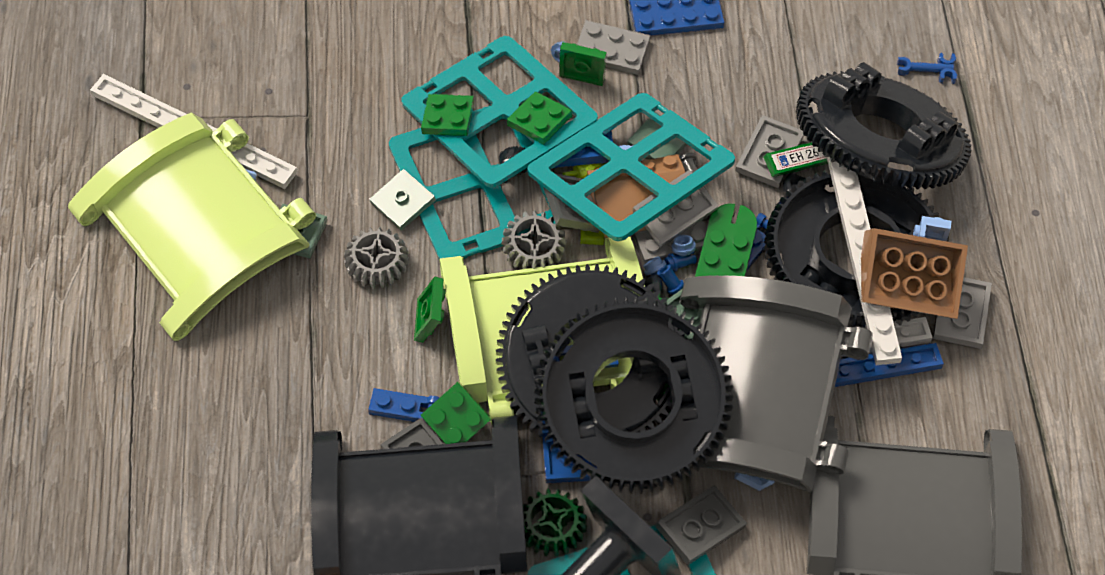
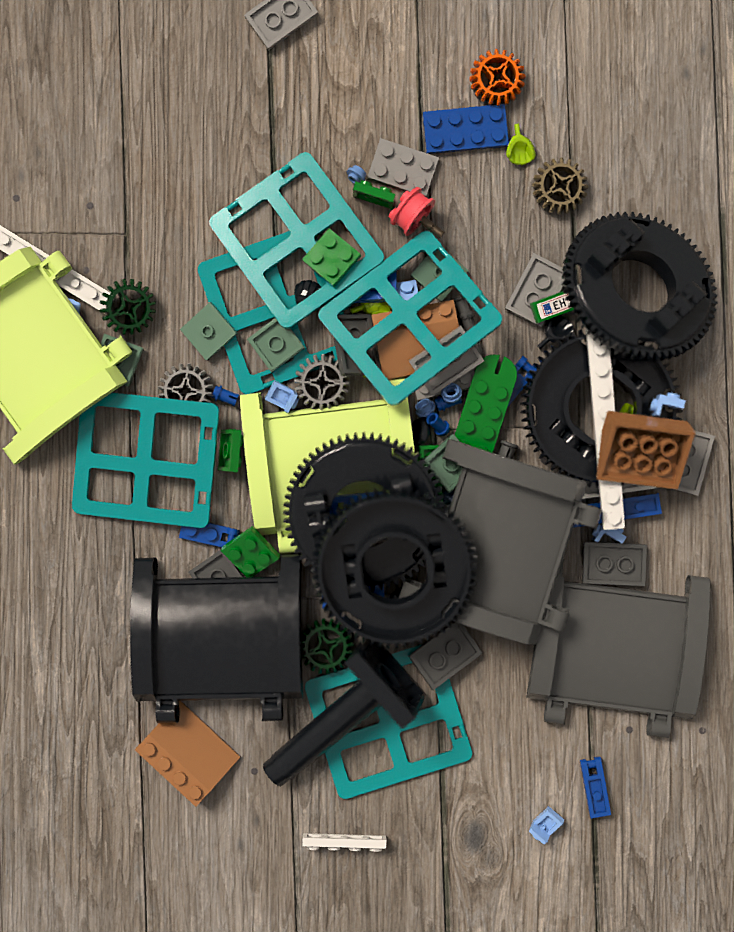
camera: 10 degrees right, 30 degrees up
(316, 163) = (119, 310): none -> dark green gear
(328, 329) = (144, 464): none -> teal window
(421, 262) = (225, 395): none -> blue pin
(447, 115) = (250, 246): green plate -> none
(479, 208) = (275, 344): none -> sand green plate
(488, 259) = (282, 396): none -> light blue bracket
(627, 77) = (414, 212): none -> coral wheel
(737, 26) = (520, 148): none -> lime piece
(783, 62) = (564, 194): none -> dark tan gear
(885, 385) = (615, 534): none -> light blue bracket
(895, 420) = (614, 563): none -> dark grey plate
(944, 67) = (708, 200): blue bar -> none

